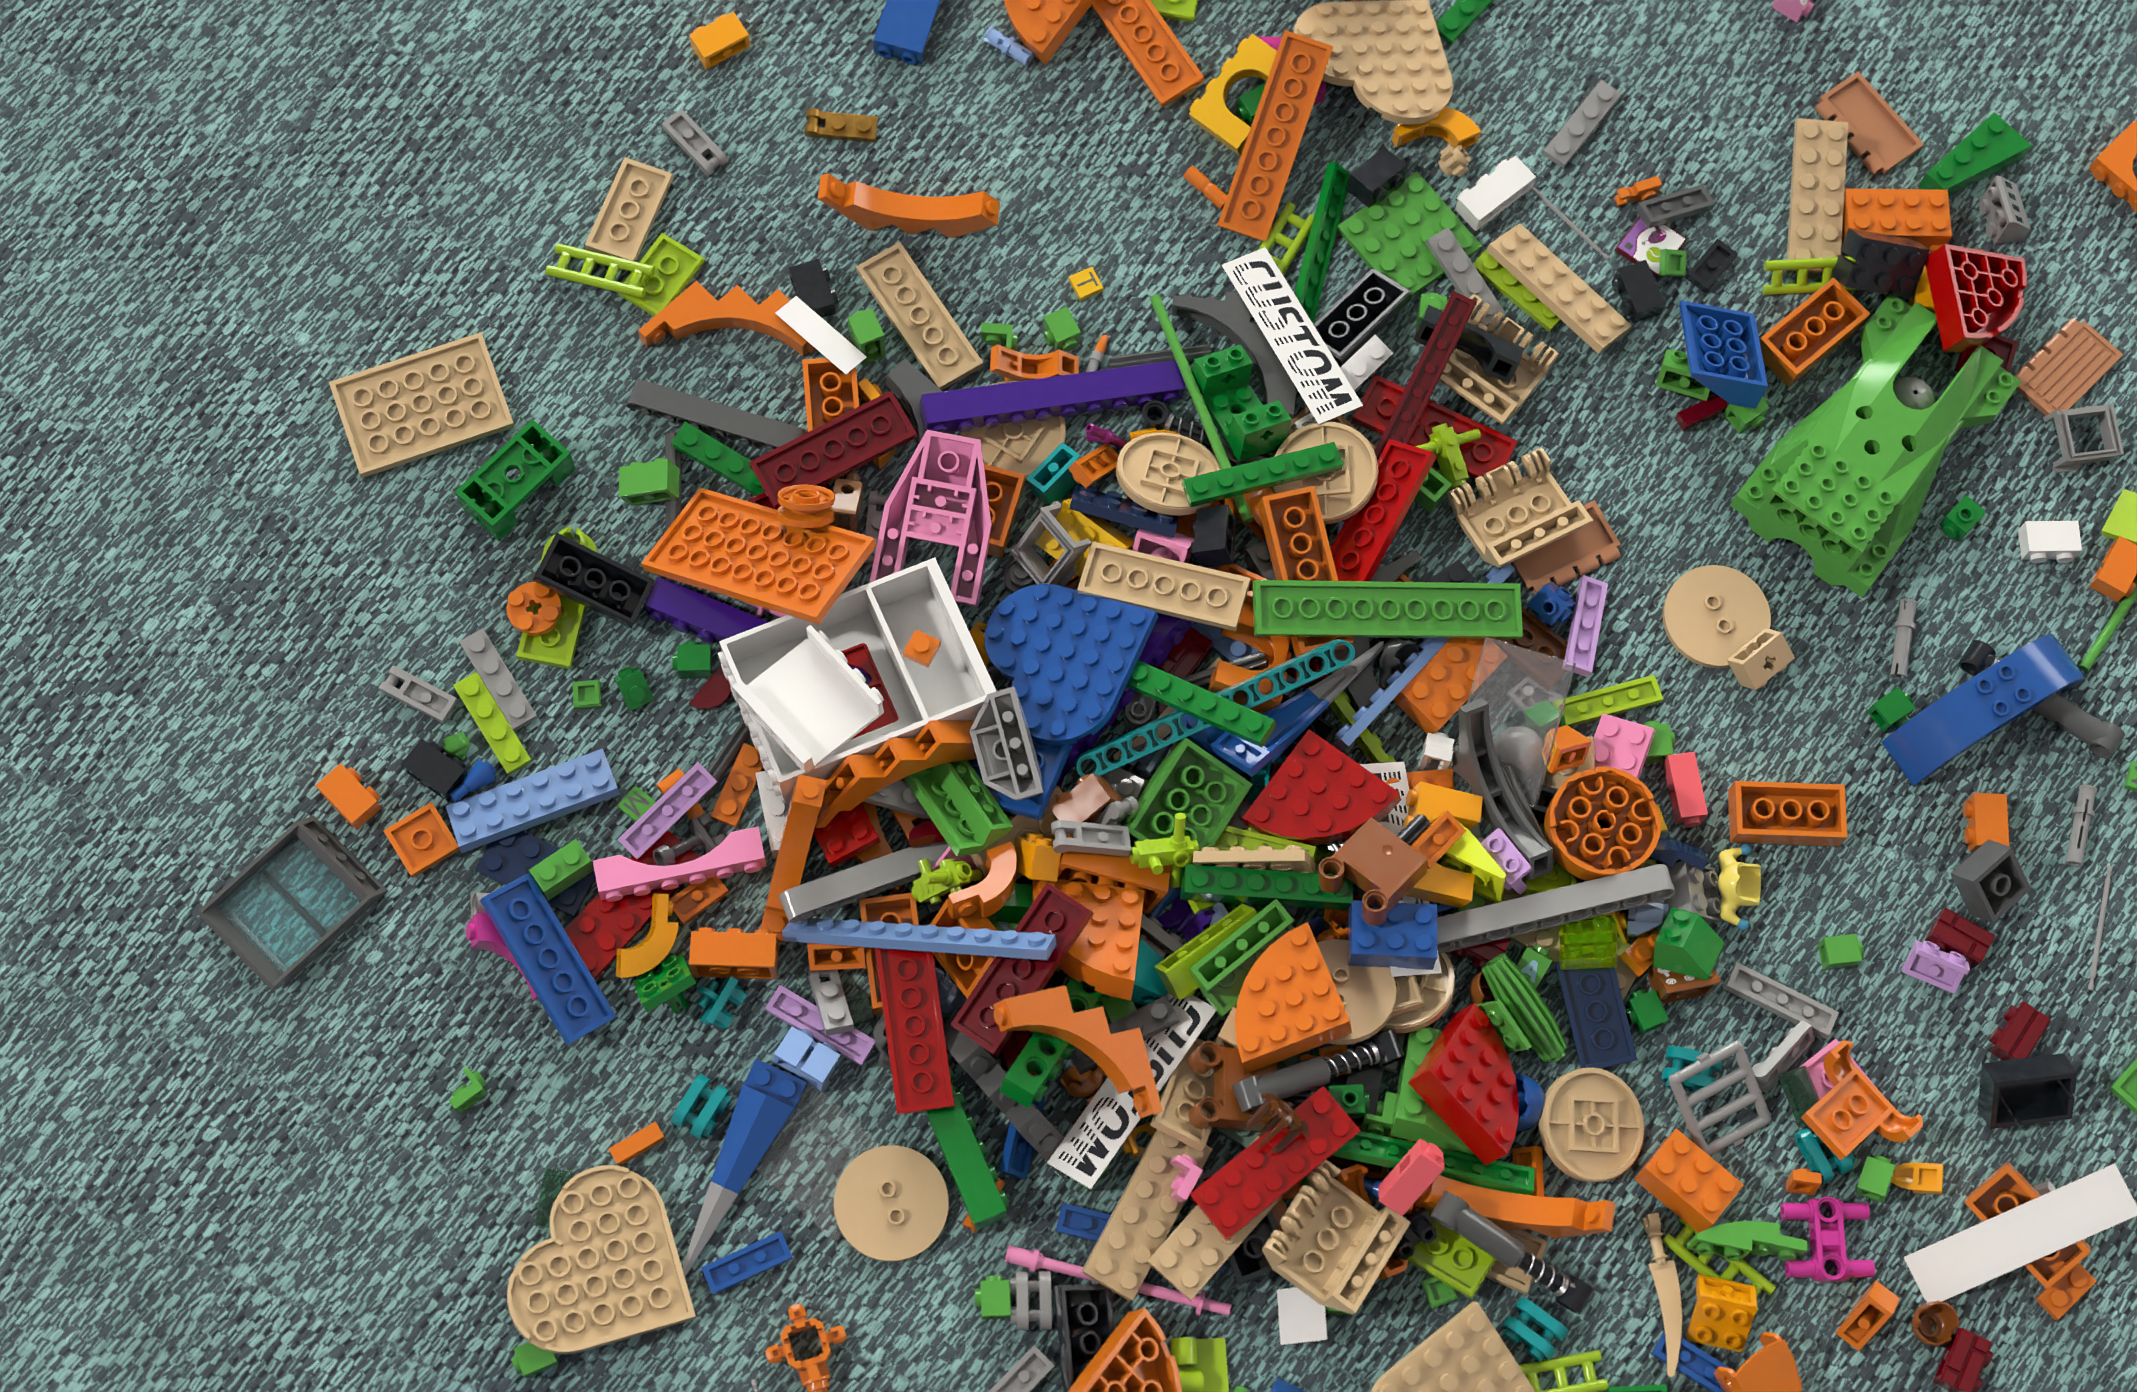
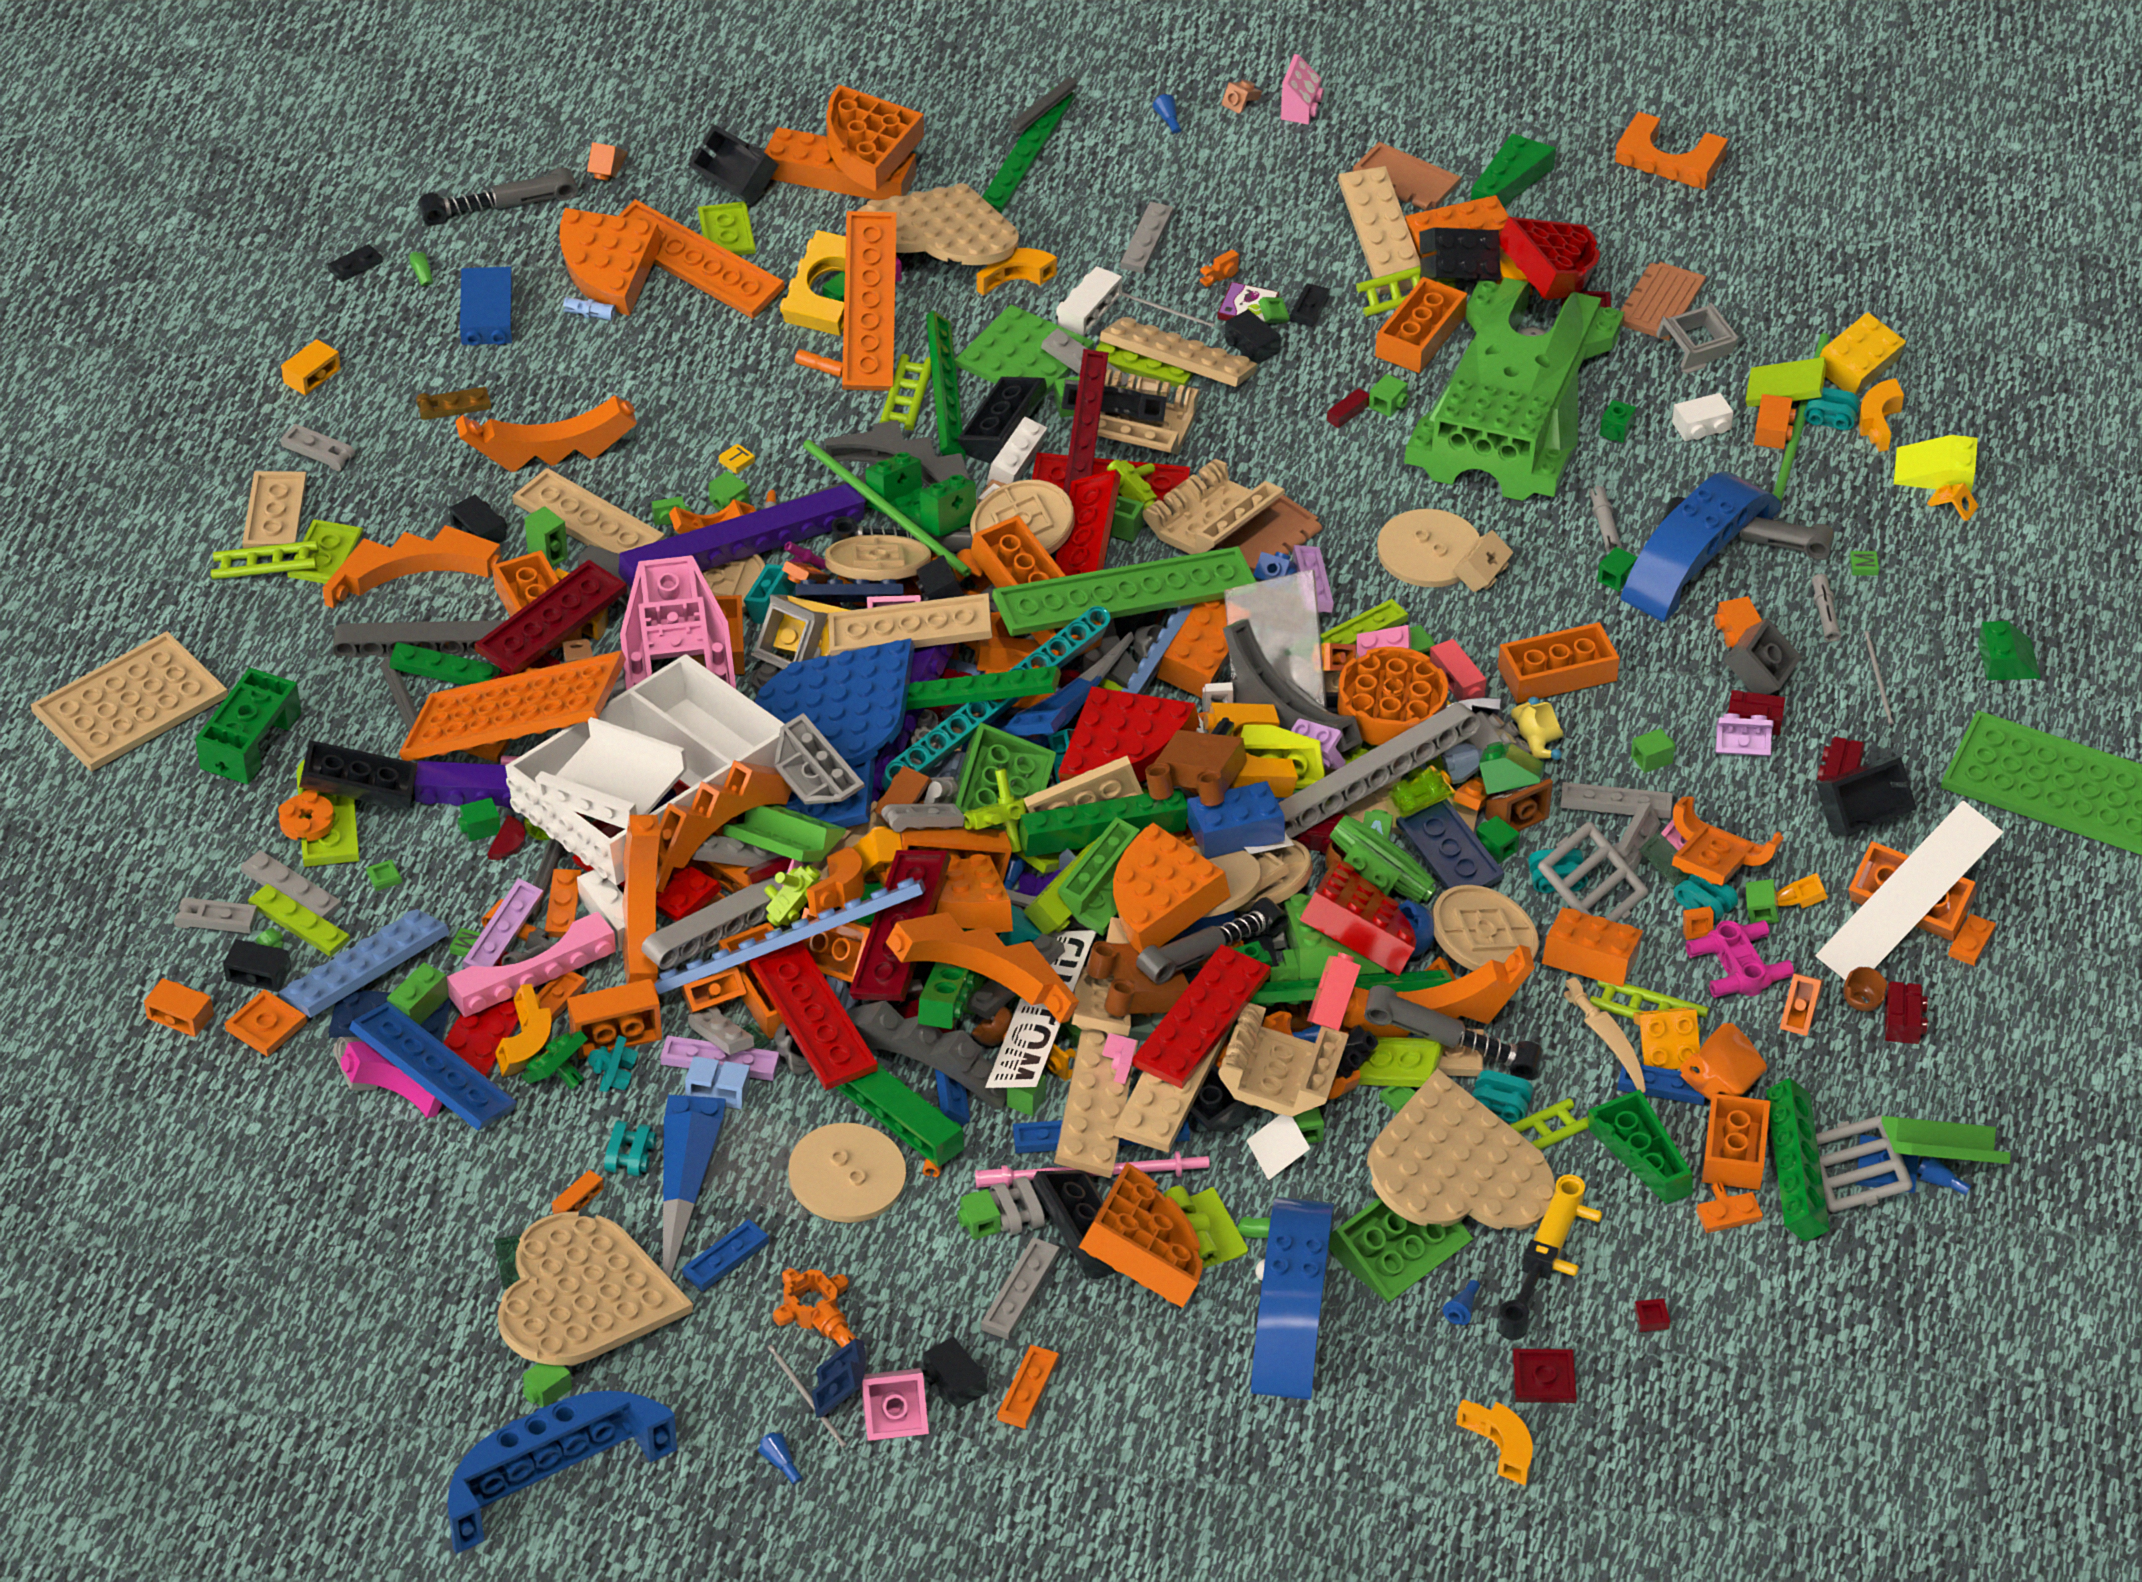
camera: 15 degrees left, 25 degrees down
(292, 902) = (153, 1104): window -> none
(468, 1095) = (395, 1198): bright green bracket -> none
(479, 776) = (304, 958): blue cone -> none
(633, 687) = (428, 855): green bracket -> none
(649, 482) = (380, 696): bright green brick -> none
(805, 506) = (545, 653): orange wheel -> none
(821, 335) = (502, 544): white sticker -> none
(922, 648) = (703, 714): orange plate -> none
(1262, 474) = (962, 528): green plate -> none
(1283, 1112) = (1195, 963): reddish brown piece -> none
(1292, 335) = (948, 436): white sticker -> none
(1376, 177) = (975, 314): black brick -> none
(1438, 837) = (1249, 727): orange plate -> none
(1454, 160) = (1041, 287): tan gear -> none
(1675, 206) = (1257, 269): dark grey plate -> none
(1676, 377) = (1322, 381): bright green brick -> none
(1724, 352) = (1353, 348): blue slope -> none
(1740, 1238) = (1664, 972): bright green slope -> none
(2004, 212) = (1552, 200): light grey slope -> none

